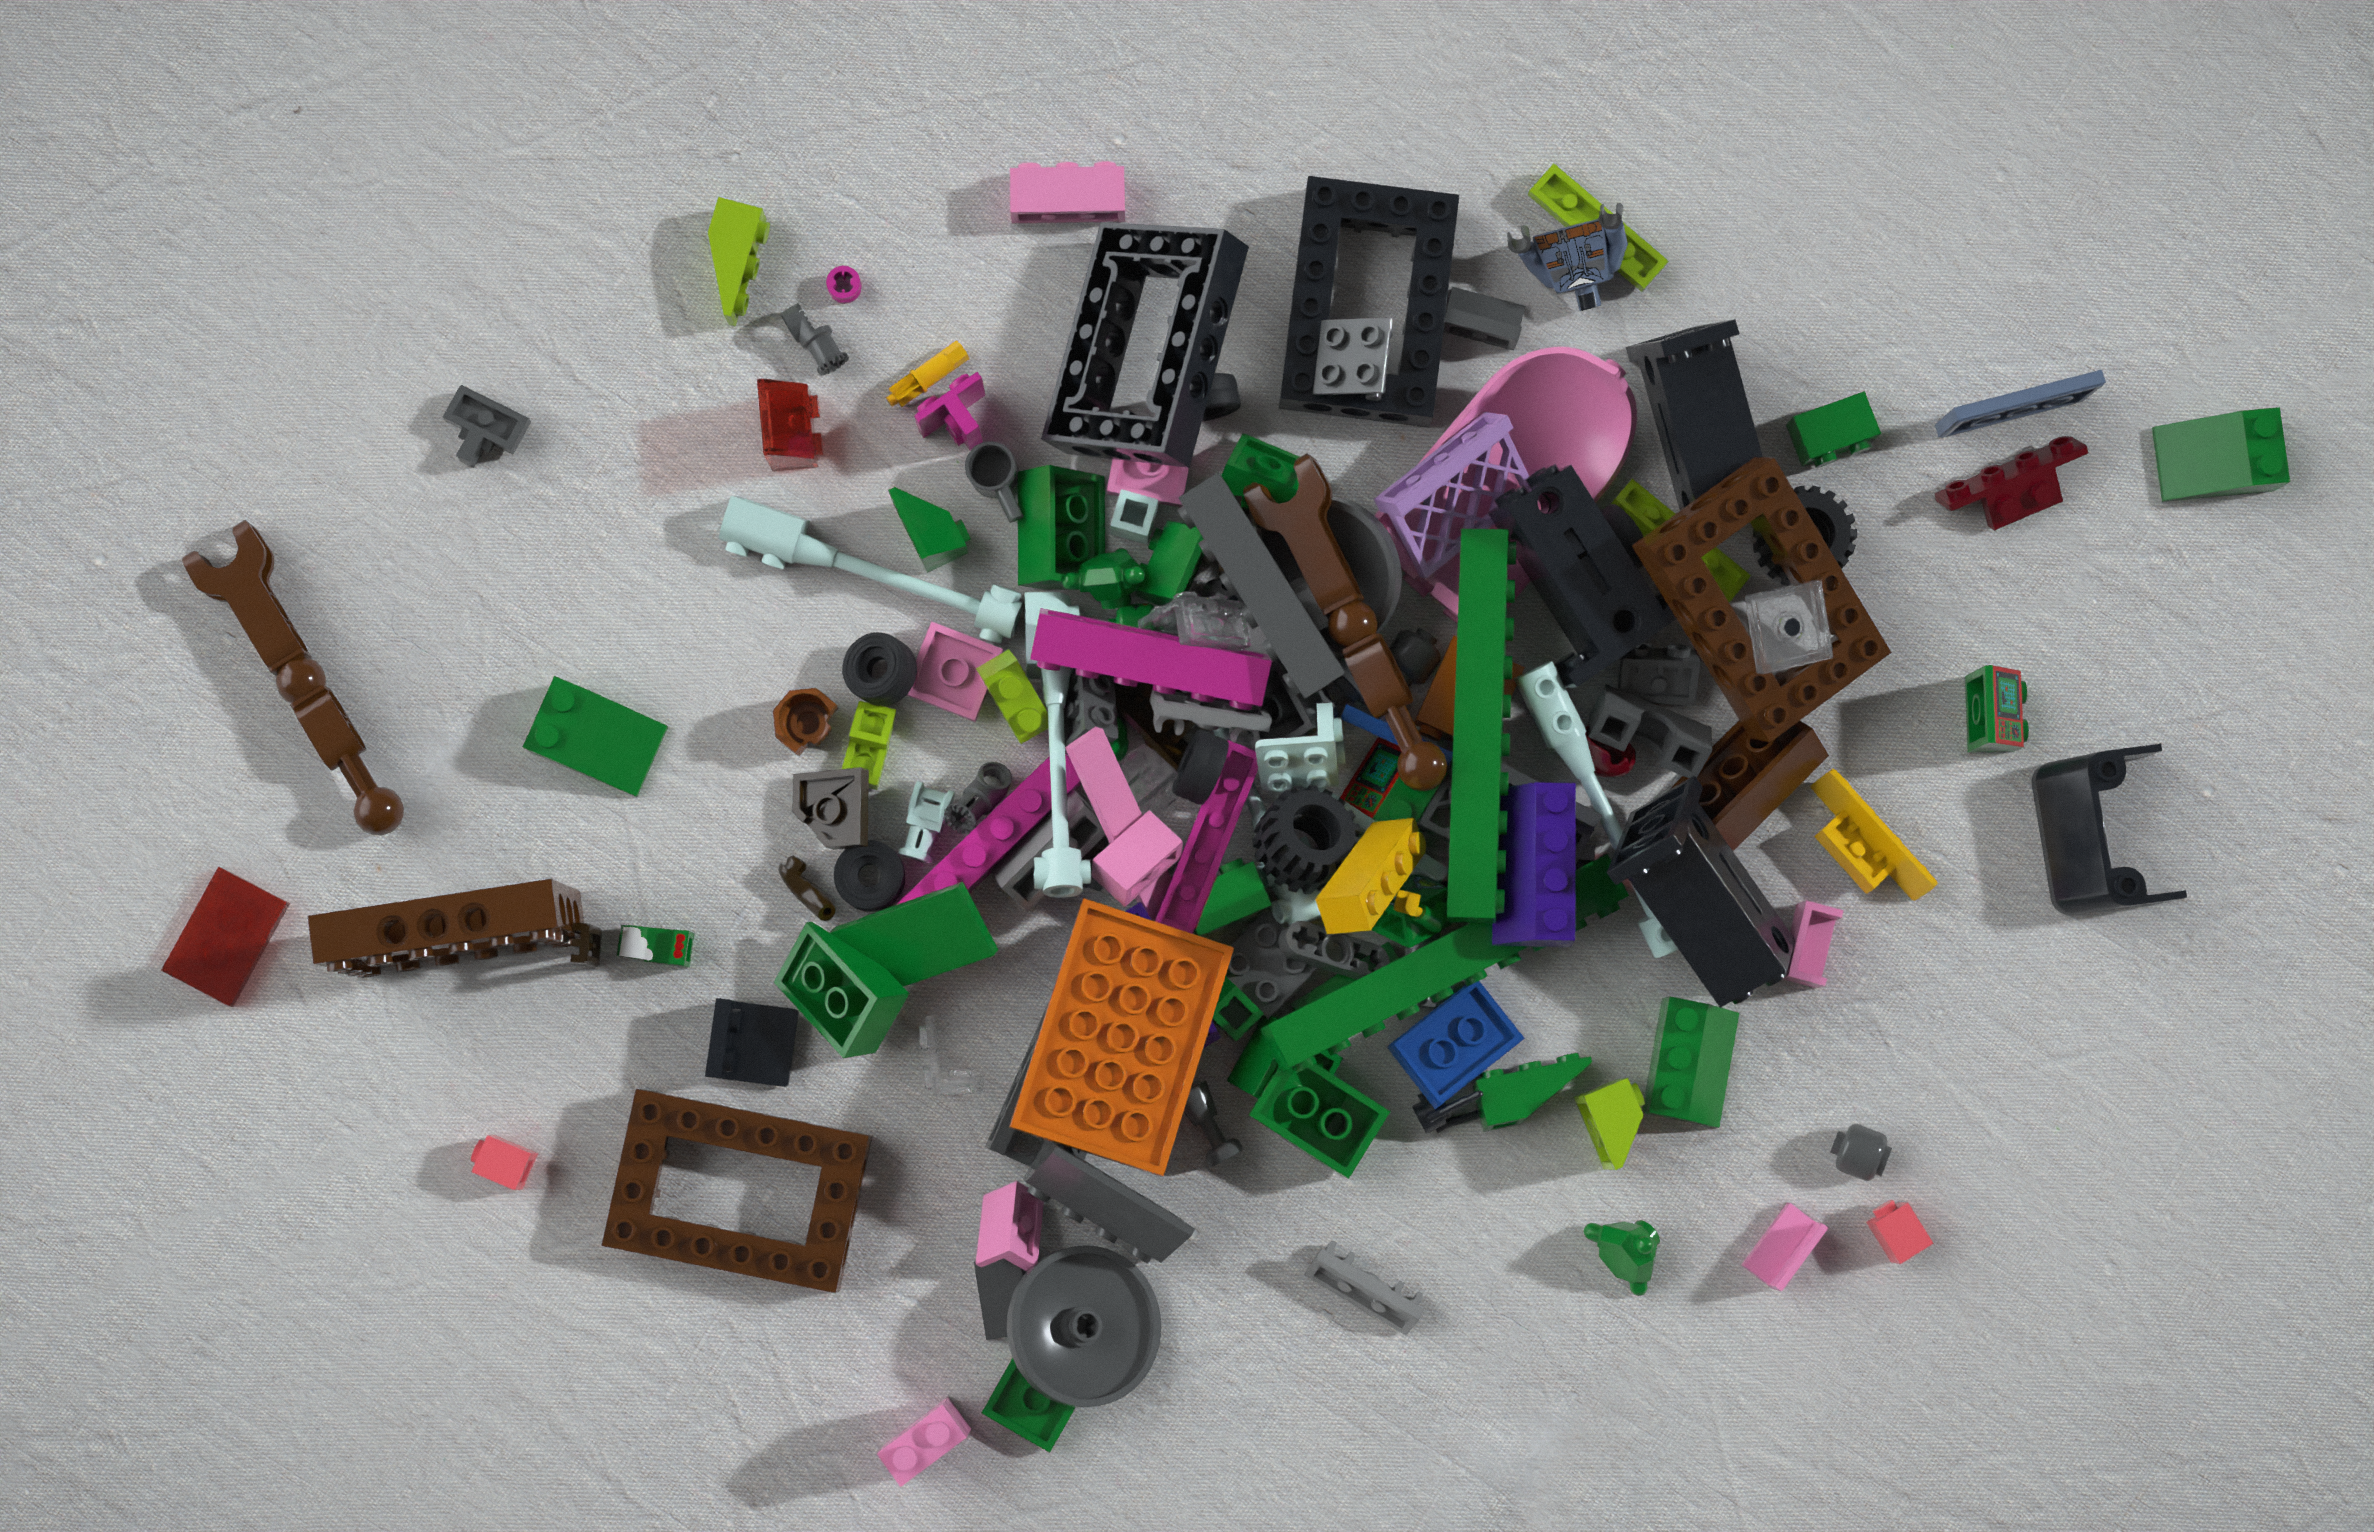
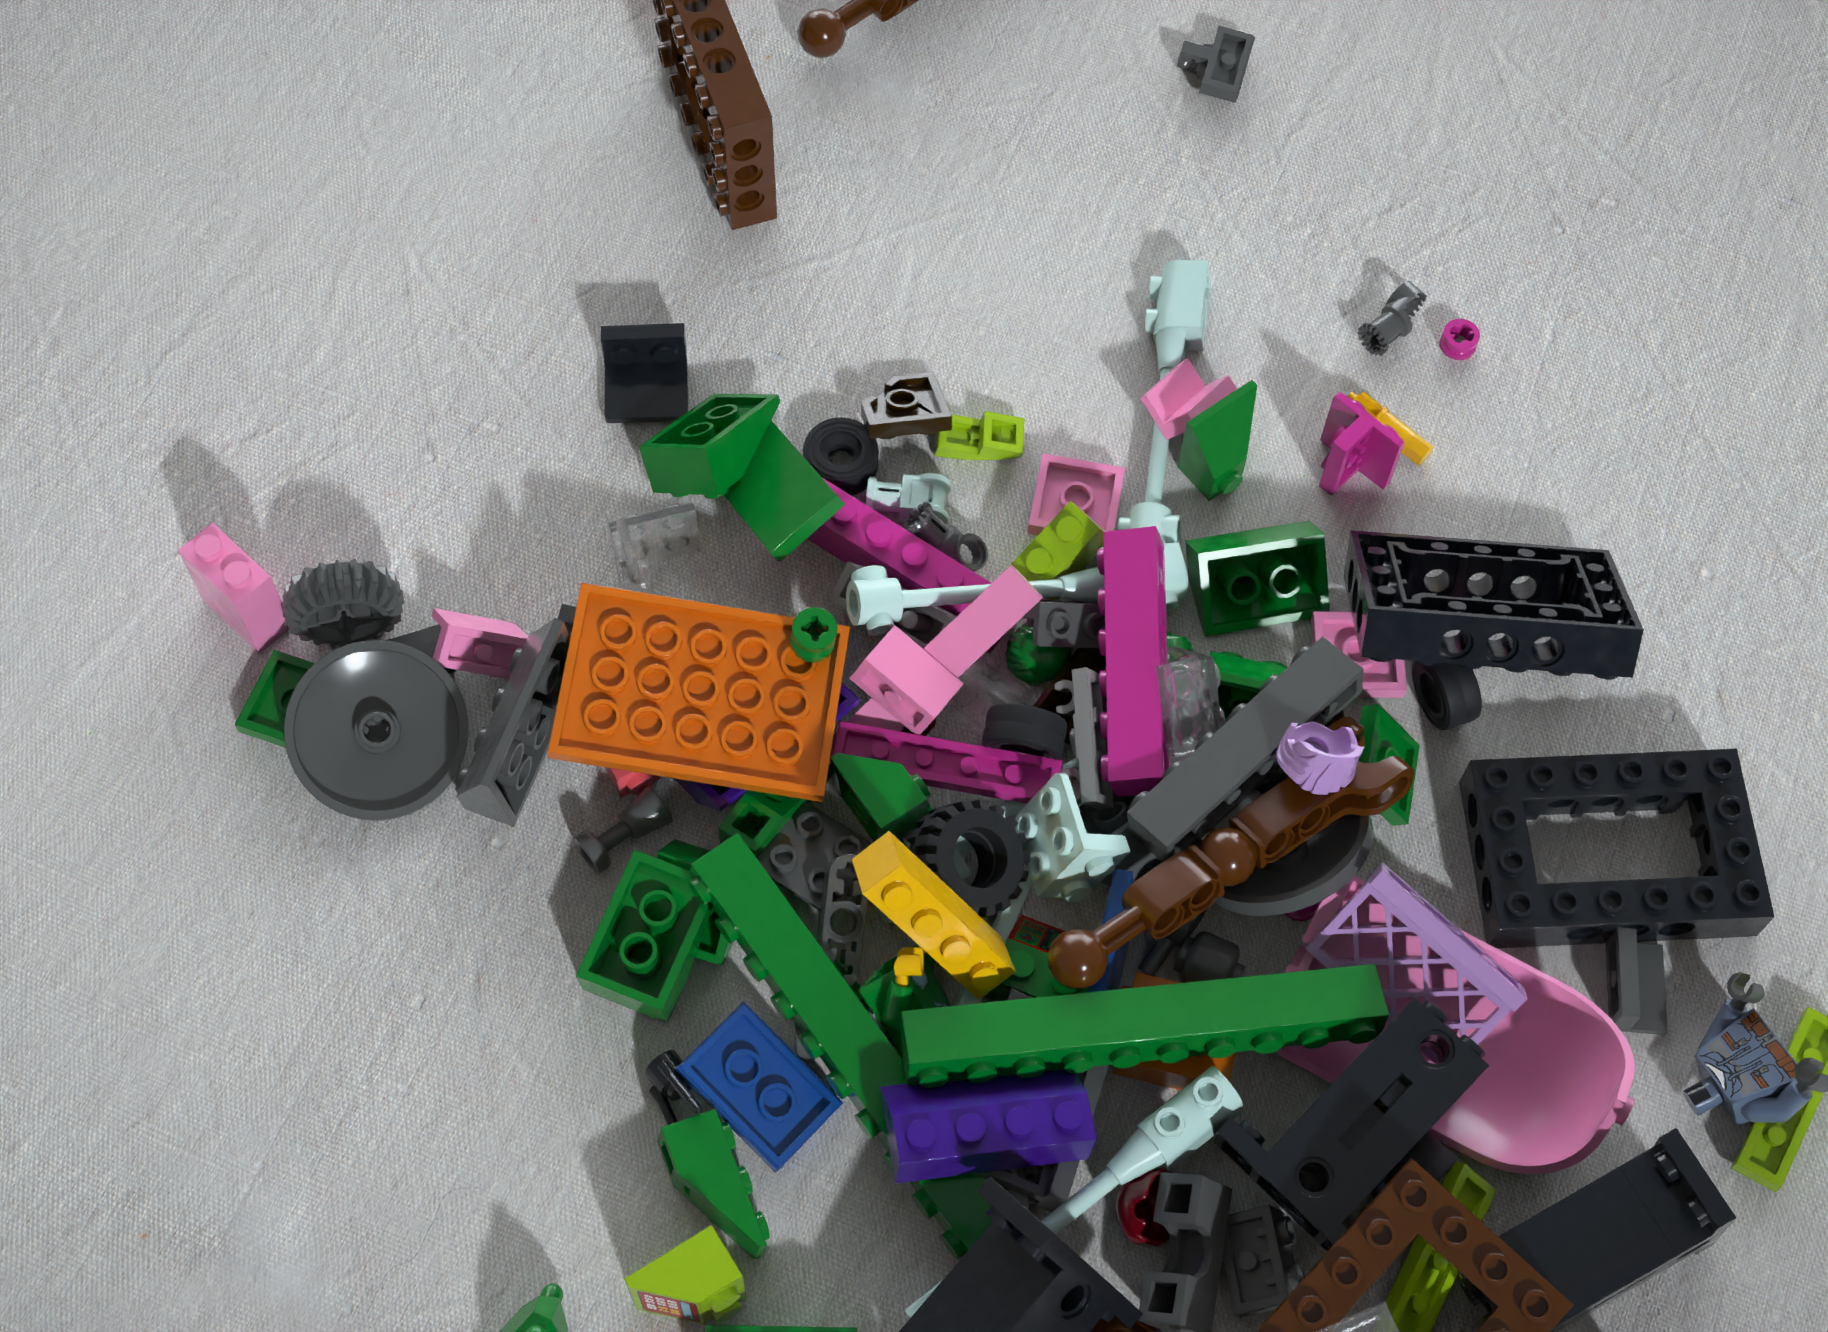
camera: 85 degrees right, 20 degrees down
(503, 1161) = (493, 190): coral brick -> none
(584, 946) = (719, 194): dark brown tile -> none
(595, 736) = (934, 196): green slope -> none
(656, 945) = (732, 283): green leg -> none
(734, 243) = (1463, 234): lime slope -> none
(788, 425) = (1296, 299): clear red slope -> none
(803, 719) = (991, 365): dark orange hair -> none
(804, 890) = (816, 401): dark brown arm -> none
(813, 1265) = (477, 477): reddish brown brick -> none
(860, 661) = (1061, 426): black tyre -> none
(875, 550) = (1182, 397): none -> bright pink panel
(955, 1345) = (342, 602): none -> dark grey gear
(994, 475) = (1301, 495): dark grey piece -> none
(1067, 193) = (1629, 522): bright pink brick -> none
(1093, 938) = (811, 645): none -> green wheel
(1107, 578) = (1215, 620): green rock -> none
(1134, 516) = (1289, 632): light aqua brick -> none
(1291, 529) = (1319, 757): none -> lavender hair
(1353, 357) = (1543, 822): dark grey hinge -> none
(1365, 1290) = (452, 1033): light grey plate -> none

